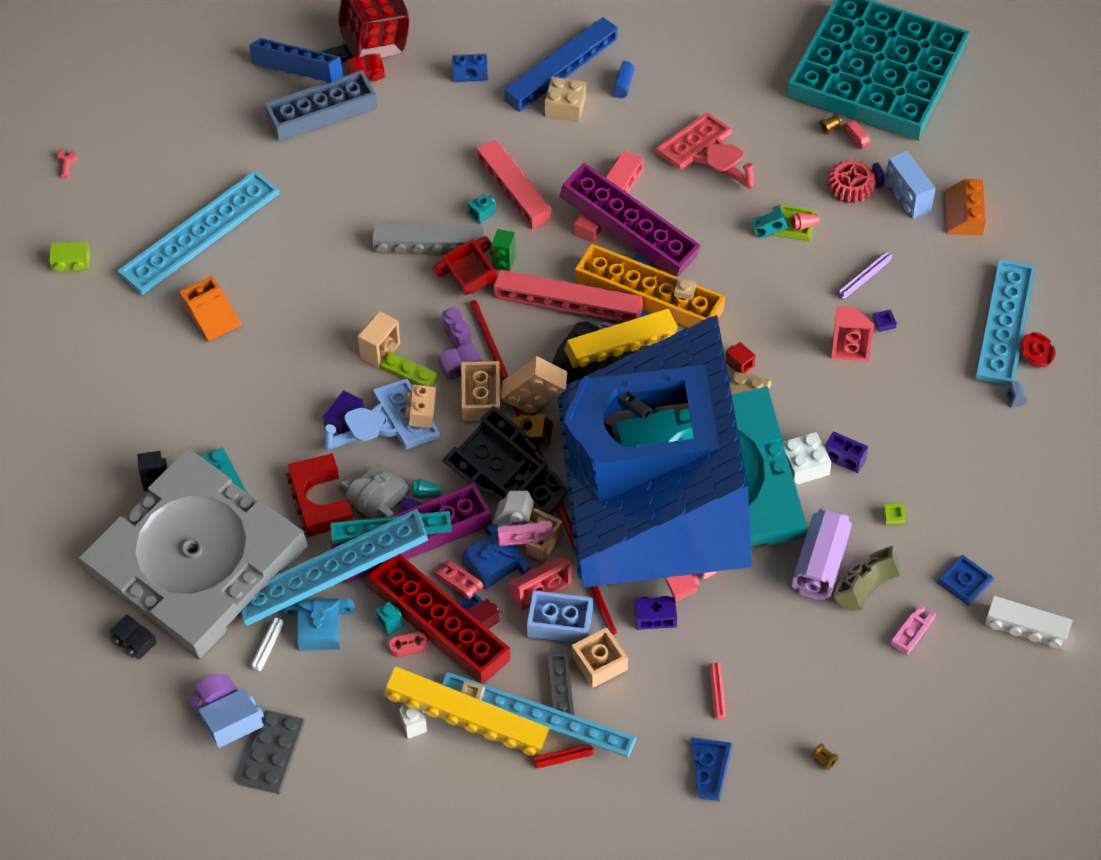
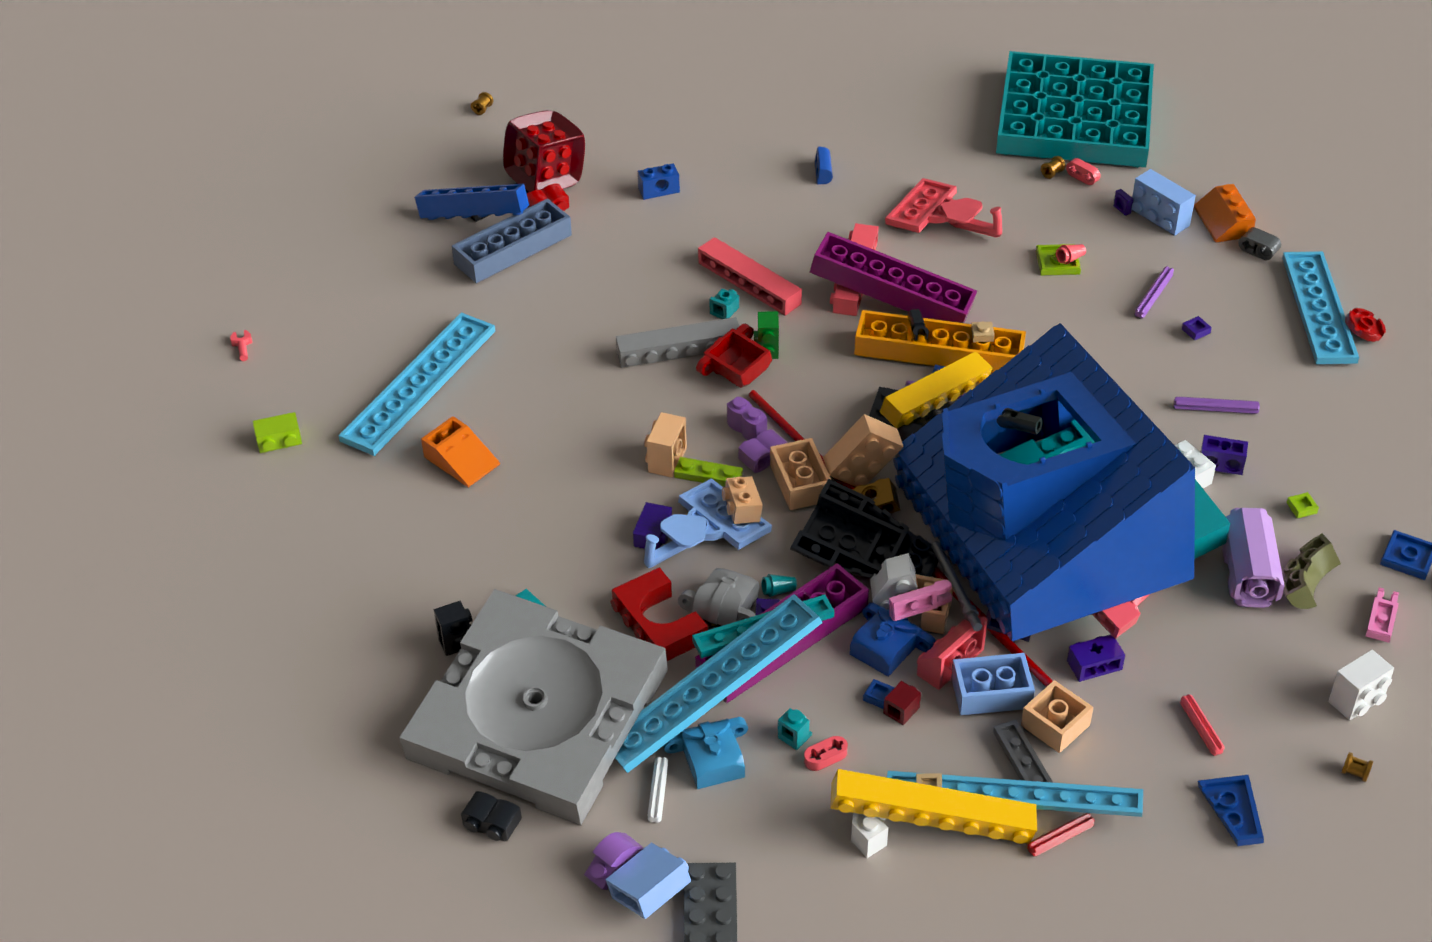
camera: 15 degrees left, 10 degrees down
(440, 618) = (855, 714): red brick -> none
(458, 579) = (857, 669): coral plate -> none
(559, 552) = (969, 610): none -> flat silver bar
(561, 63) = (751, 163): blue brick -> none
(565, 99) = (771, 191): tan brick -> none
(567, 296) = (855, 366): coral brick -> none
(631, 268) = (917, 324): none -> black bar
(769, 223) = (1036, 261): teal leg -> none
(840, 181) = (1099, 211): coral gear -> none
(851, 335) = (1177, 341): coral slope -> none
(857, 689) = (1361, 685): none -> white brick
(866, 400) = (1217, 405): none -> medium lavender axle
(983, 245) = (1259, 243): none -> dark grey beam
(1016, 394) = (1366, 369): sand blue brick -> none

